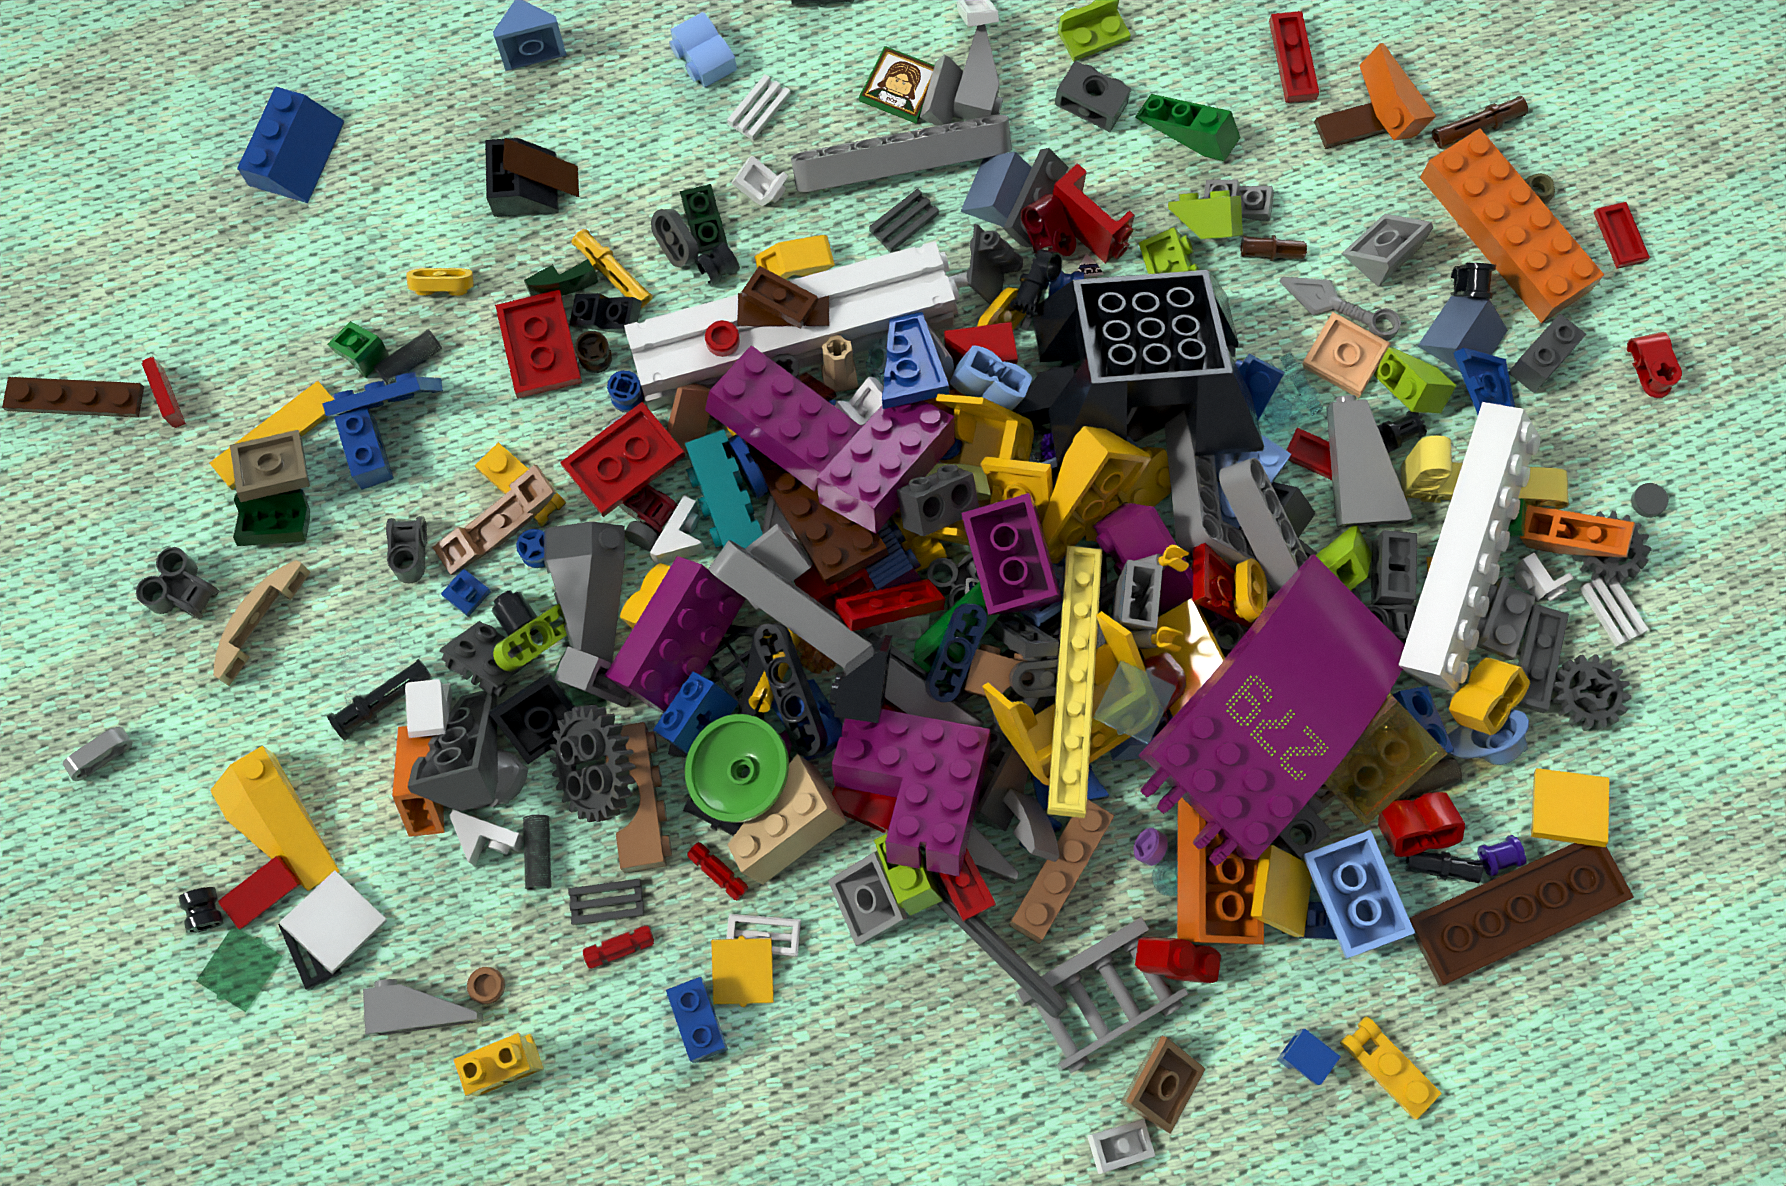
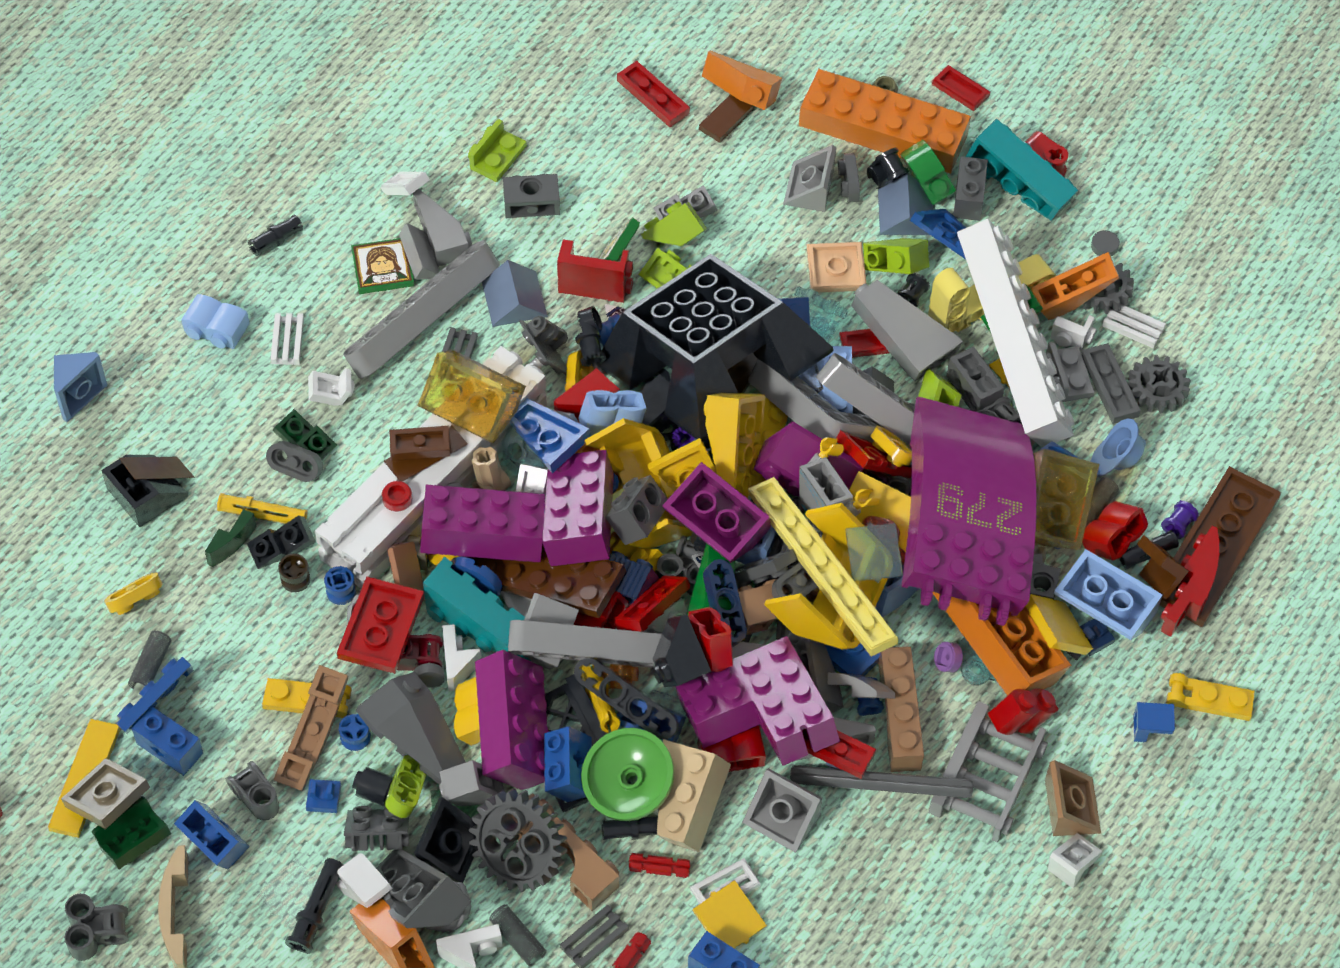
camera: 35 degrees left, 15 degrees down
(334, 567) = (211, 834): none -> blue brick
(359, 348) = (106, 672): green slope -> none
(538, 344) = (245, 593): red plate -> none
(718, 263) = (342, 458): black wheel -> none
(797, 257) = (401, 416): yellow slope -> none
(864, 276) = (470, 395): none -> clear yellow slope
(906, 686) = (713, 638): none -> red brick
(912, 887) = (806, 772): lime slope -> none
(1040, 181) = (542, 284): dark grey plate -> none
(1047, 224) = (569, 298): dark red piece -> none
(1136, 200) = (620, 241): none -> green tile
(1196, 126) = (621, 175): green slope -> none
(1272, 248) = (733, 226): reddish brown axle -> none
(1320, 297) = (791, 240): light grey piece -> none
(1423, 275) = (850, 186): none -> dark grey plate
(1437, 900) = (1162, 570): none -> reddish brown panel
(1472, 935) = (1196, 584): none -> red slope
(1489, 695) = (1096, 423): yellow brick -> none
(1492, 117) = (818, 59): reddish brown pin -> none
(1512, 309) = (928, 171): none -> green brick
(1570, 807) = (1200, 462): yellow tile -> none
(1617, 367) = (1022, 170): none -> teal wedge

